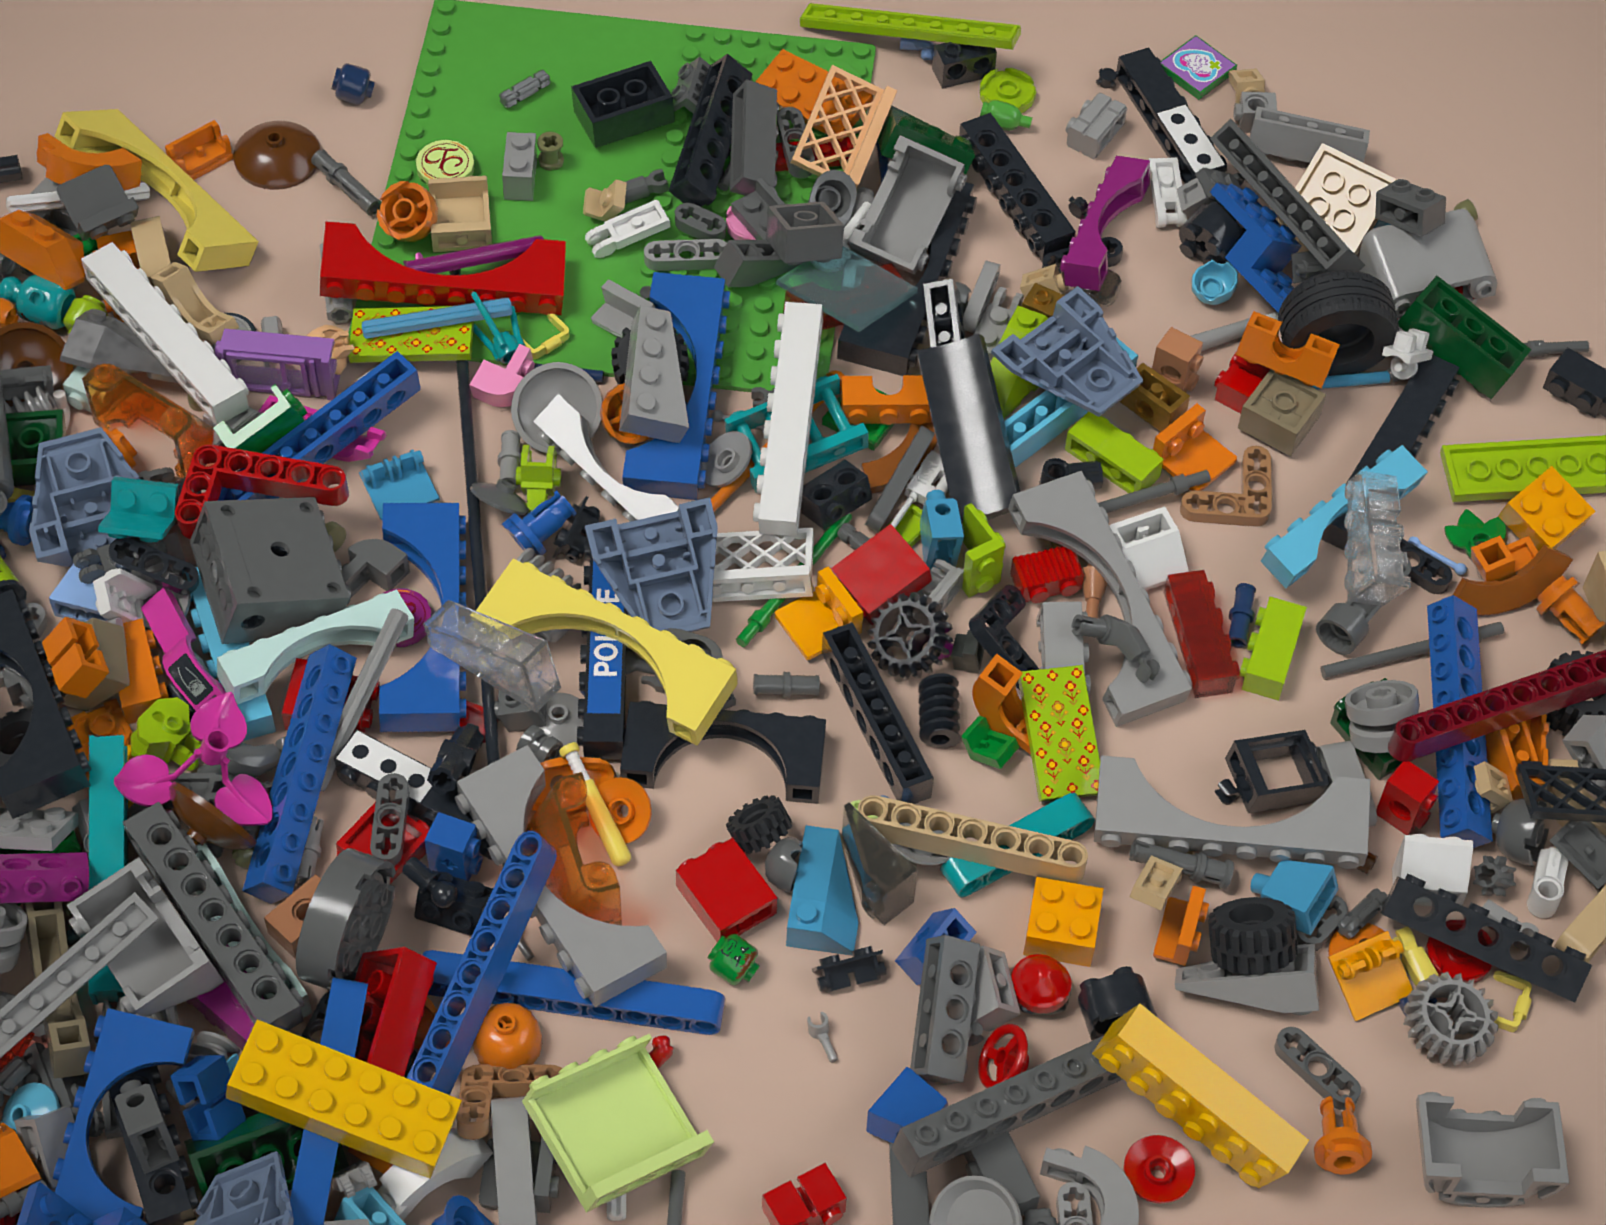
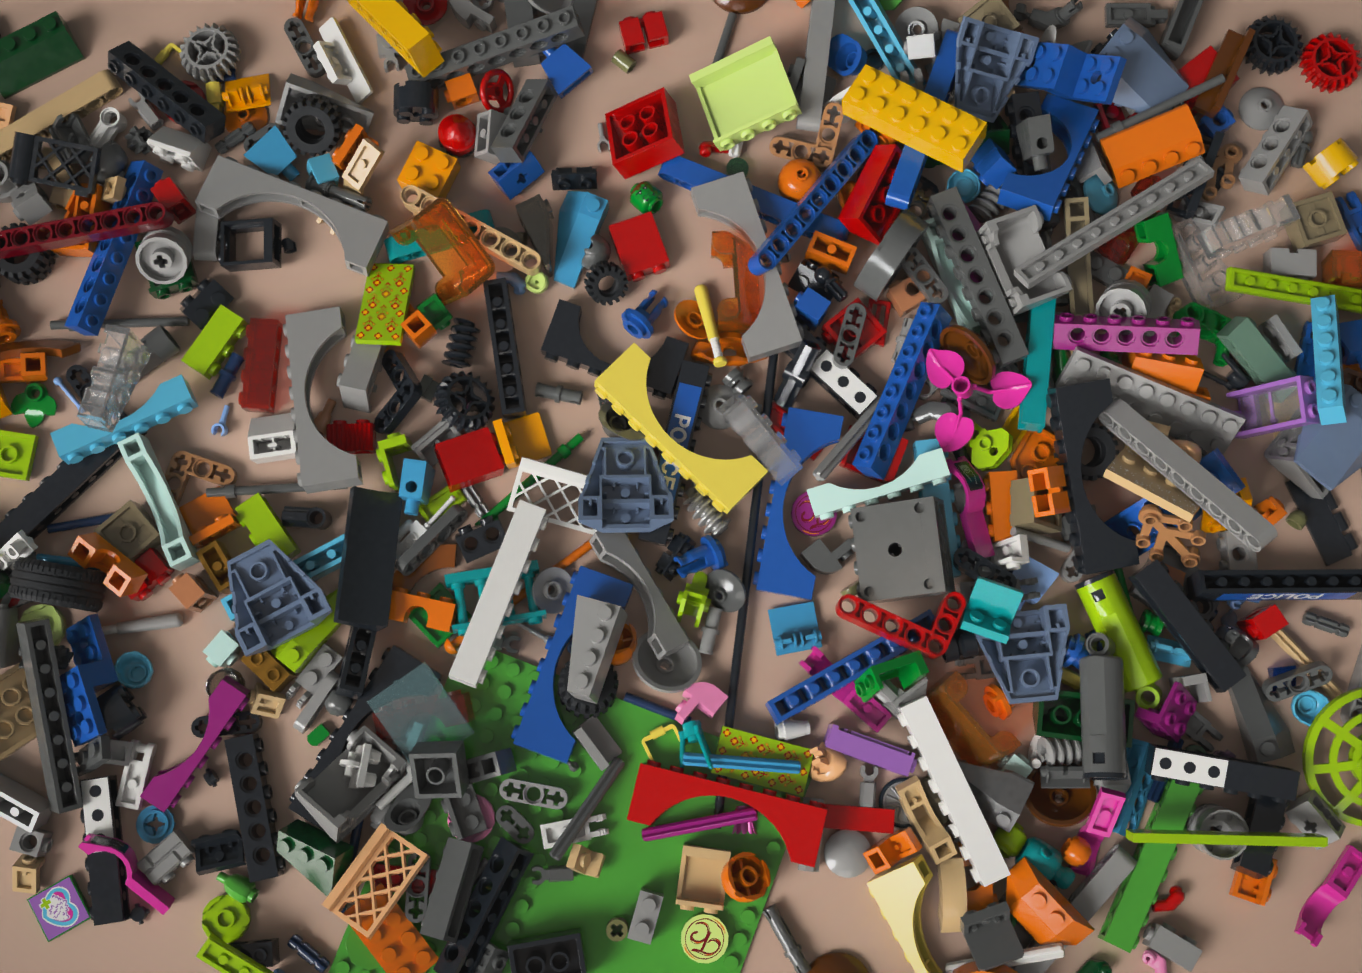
camera: 165 degrees left, 25 degrees up
(235, 281) = (892, 849): none -> orange brick
(286, 306) = (859, 818): none -> red tile
(287, 275) = (845, 853): none -> light grey dish
(287, 906) = (938, 285): none -> dark grey beam
(436, 931) = (830, 252): none -> orange brick
(606, 1035) = (736, 166): none -> clear green tile
(617, 244) = (587, 809): none -> dark grey axle
(699, 787) = (639, 321): none -> blue piece
(759, 1041) = (644, 133): none -> red slope
(820, 1153) = (623, 61): none -> olive hinge
(901, 77) = (308, 953): none -> dark blue axle
(906, 230) = (357, 766): none -> white hips
(968, 270) = (318, 735): none -> green piece
(971, 786) = (449, 247): none -> clear orange windscreen
(1040, 138) = (218, 851): none -> black bracket
(1054, 1043) = (461, 91): none -> orange brick
(1119, 633) = (319, 354): dark grey arm -> none
(1121, 318) = (223, 650): none -> light aqua brick
(1129, 147) = (148, 832): none -> dark azure gear
(1140, 106) = (136, 879): none -> dark pink piece
(1218, 884) = (322, 169): none -> medium azure panel
(1225, 560) = (222, 422): none -> light blue hand
(1257, 1050) = (341, 61): none -> white bracket
(1297, 480) = (151, 479): none -> light aqua arch
(1309, 694) = (205, 302): none -> black bracket
(1349, 423) = (78, 523): none -> dark blue bar

